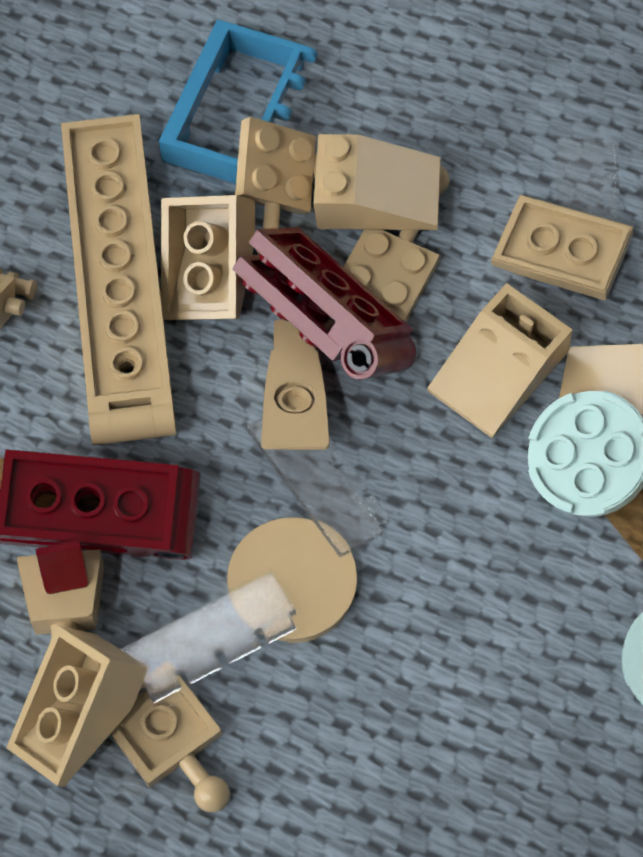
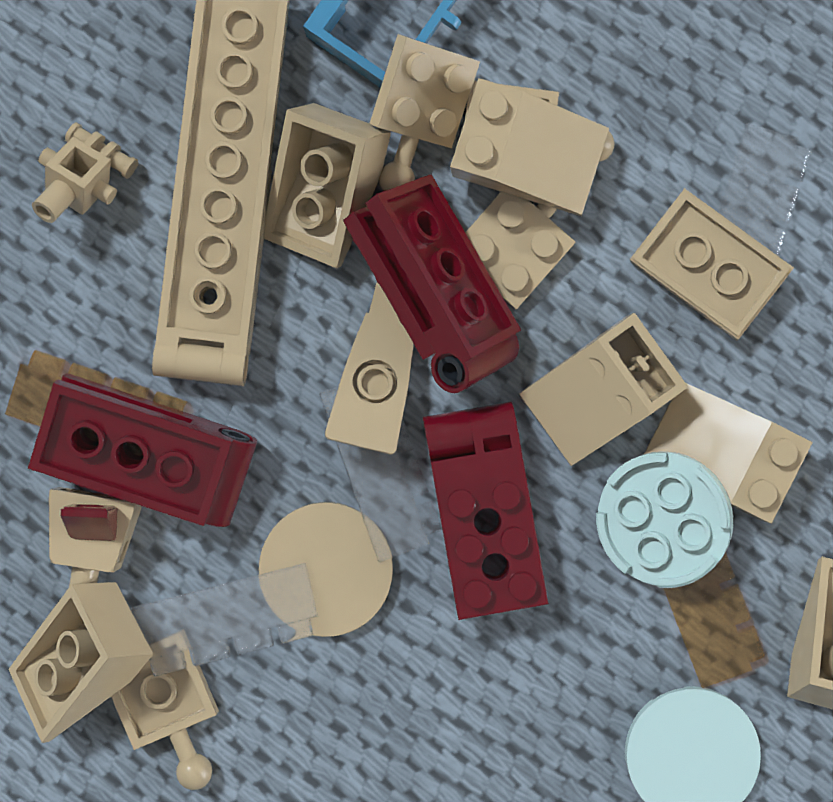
camera: 15 degrees right, 25 degrees up
(413, 452) = (479, 467): none -> dark red hinge

